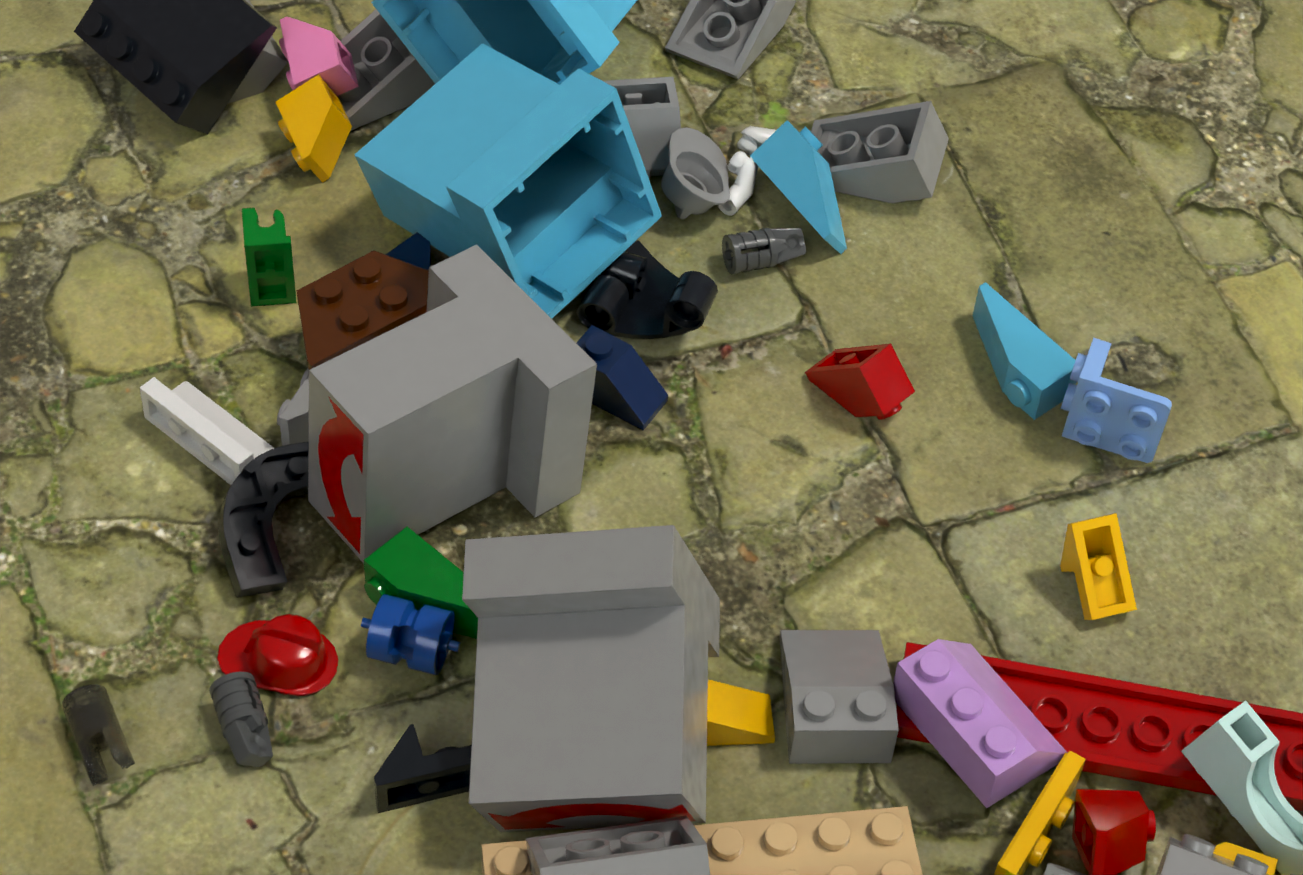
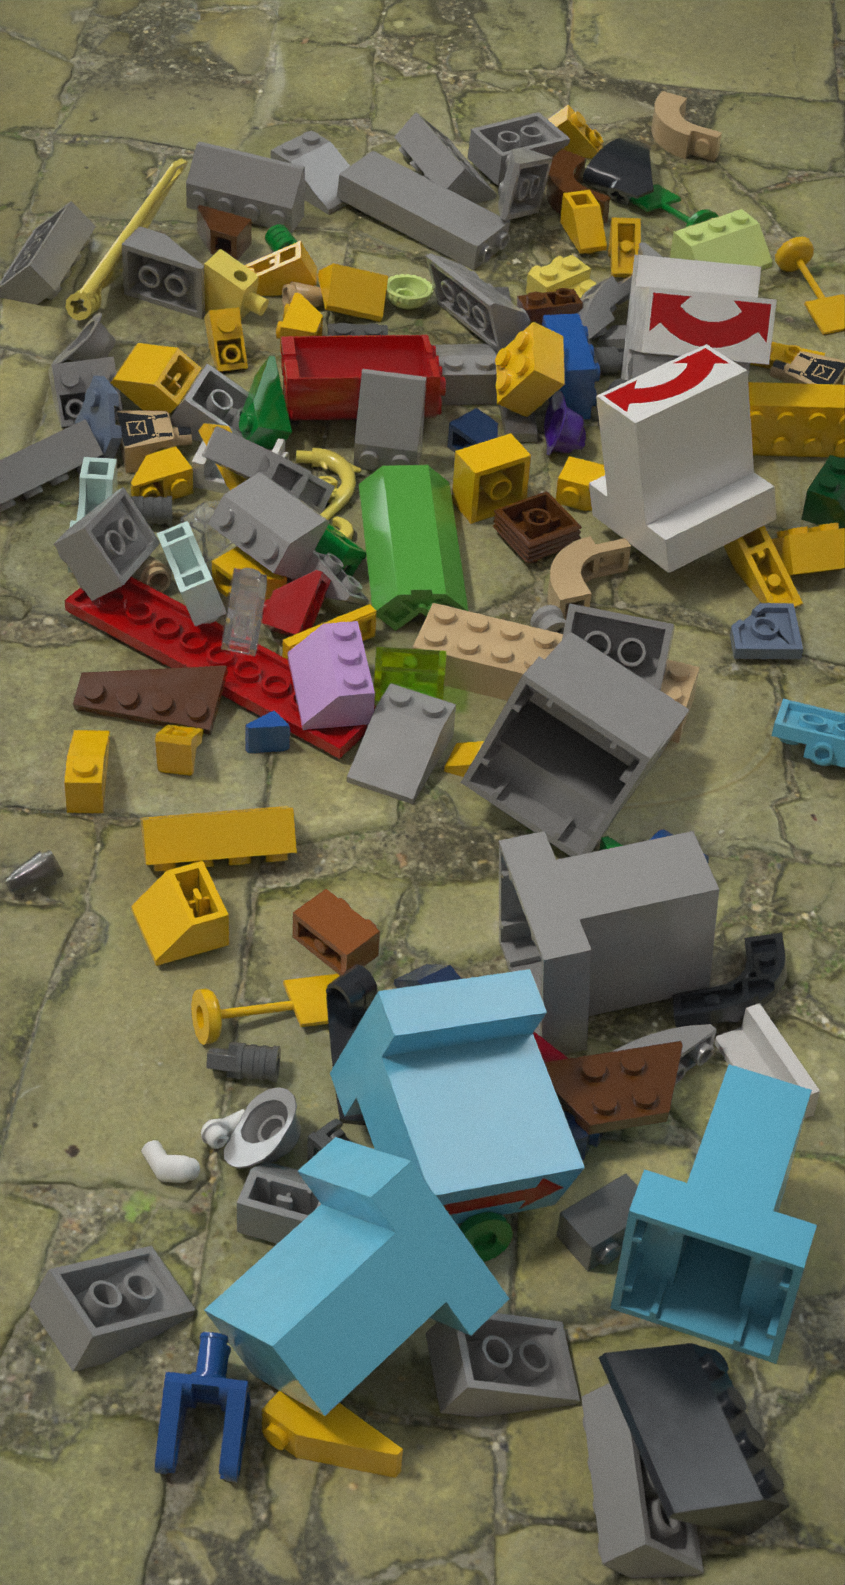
camera: 155 degrees left, 5 degrees down
(188, 147) = (715, 1249): none -> medium azure piece
(242, 718) = (804, 863): dark grey hinge -> none
(268, 260) = (678, 1151): green hinge -> none
(281, 655) = (763, 899): red piece -> none
(315, 52) = (556, 1369): bright pink slope -> none
(316, 125) = (583, 1315): yellow slope -> none
(326, 214) = (597, 1224): none -> dark grey brick
(414, 779) = (703, 786): black slope -> none
(737, 344) = (305, 995): none -> yellow piece
(758, 405) = (335, 932): none -> dark orange brick
(804, 178) = (175, 1102): medium azure slope -> none
(863, 380) = (248, 928): red slope -> none
(884, 152) = (92, 1108): light grey slope -> none
(891, 775) = (411, 669): none -> clear neon green brick
(934, 361) = (182, 914): none -> yellow slope
(969, 478) = (219, 836): none -> yellow slope
(1007, 633) = (267, 734): none -> blue slope
(1024, 359) = (109, 895): medium azure slope -> none
(1110, 412) = (90, 824): light blue bracket -> none
(1125, 358) = (34, 874): none -> clear smoke cone
(1165, 635) = (155, 695): none -> reddish brown wing
(1165, 778) = (244, 611): none -> clear slope
(1178, 509) = (87, 771): none -> yellow slope

